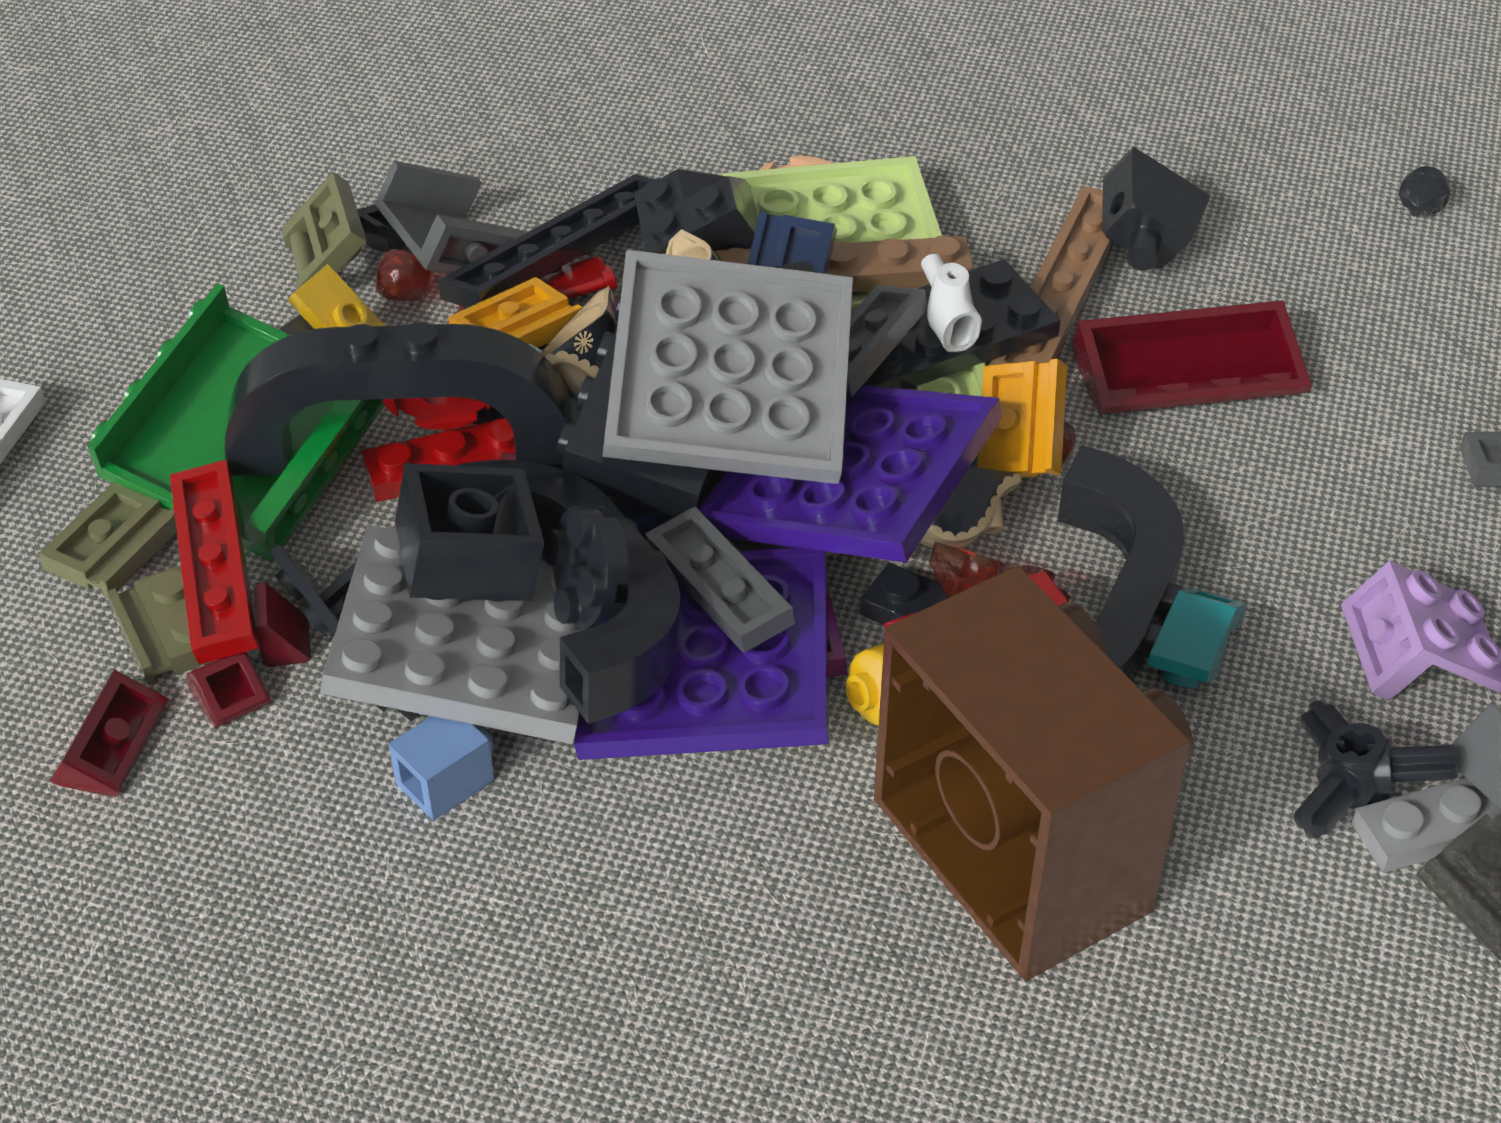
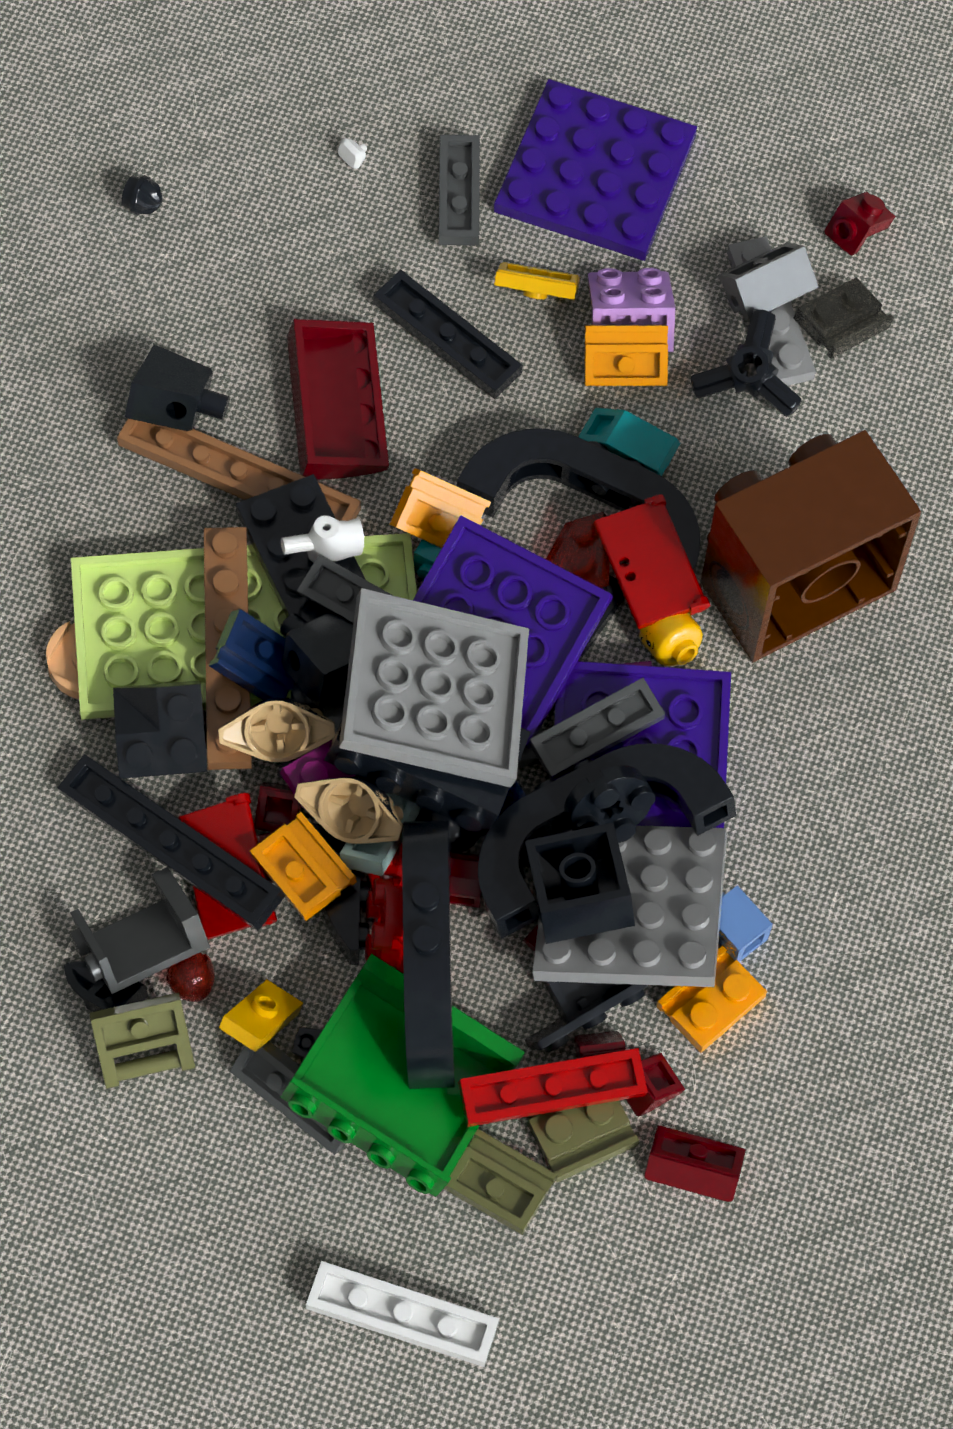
camera: 90 degrees left, 20 degrees up
(337, 751) = (709, 1012): none -> light orange plate
(1316, 455) = (447, 334): none -> black plate
(1337, 624) = (626, 355): none -> light orange plate
(1432, 532) = (537, 282): none -> yellow plate

